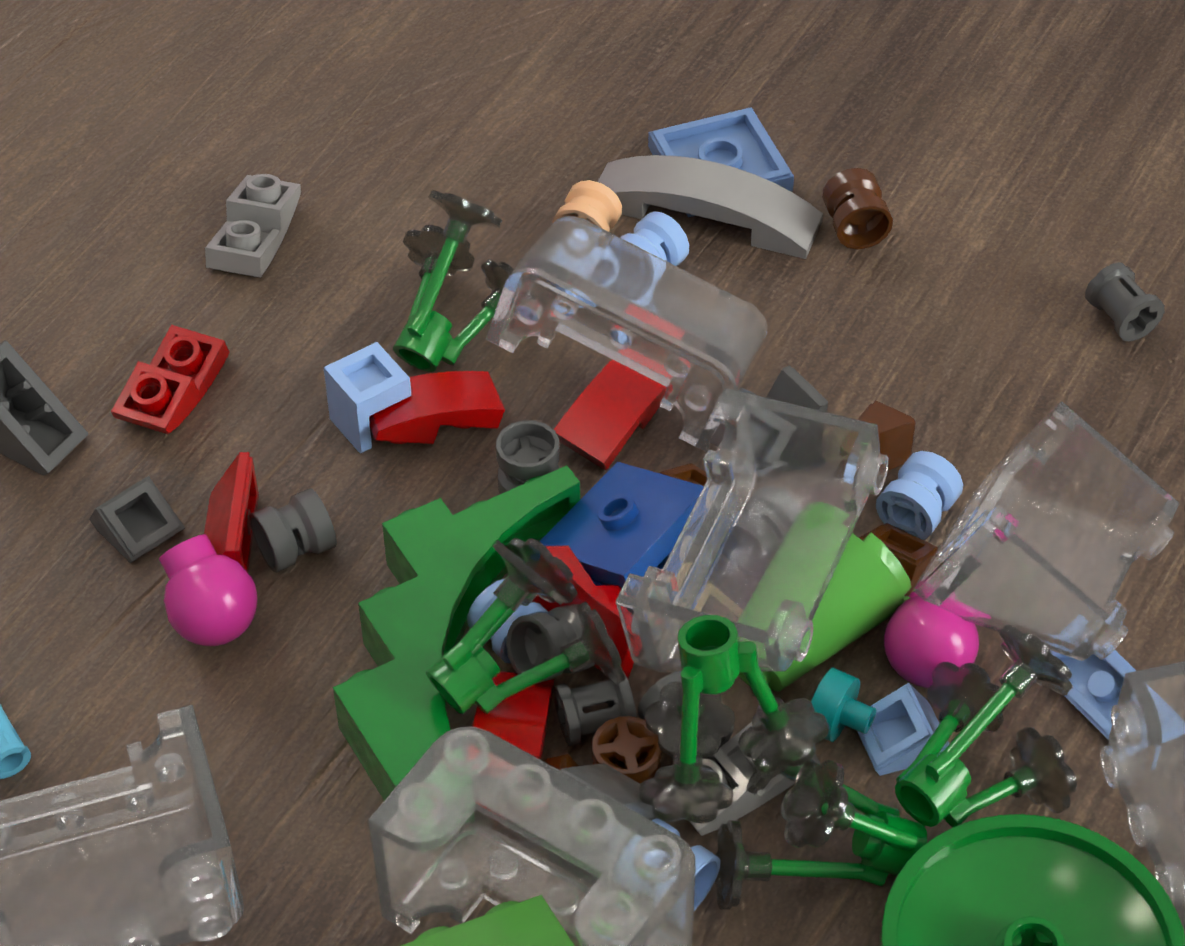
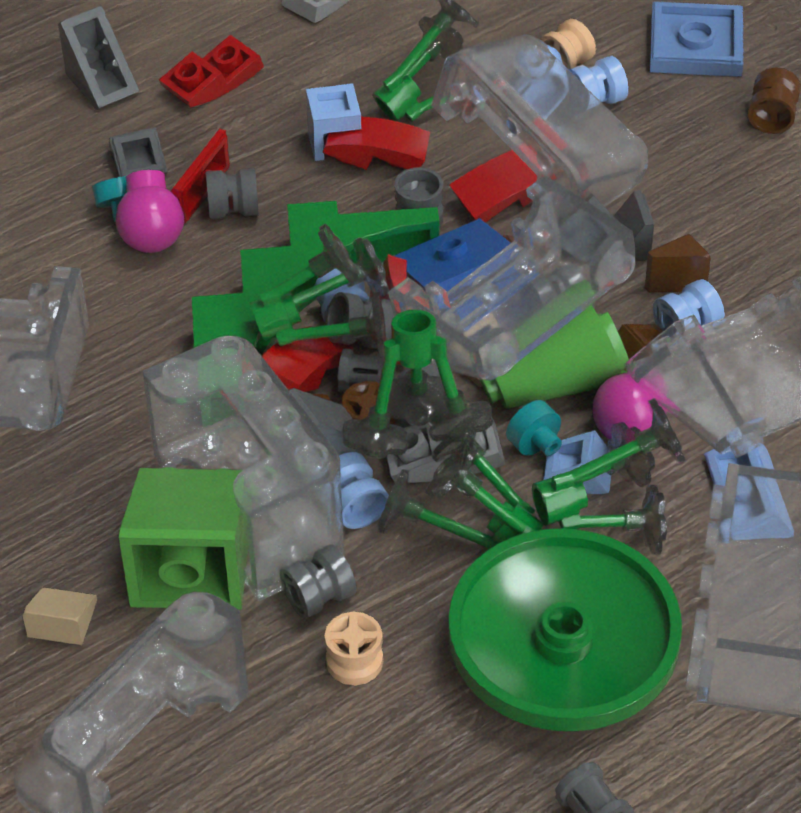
camera: 25 degrees right, 0 degrees up
(143, 581) = (109, 193): none -> teal tile
(716, 192) = (707, 84): light grey slope -> none

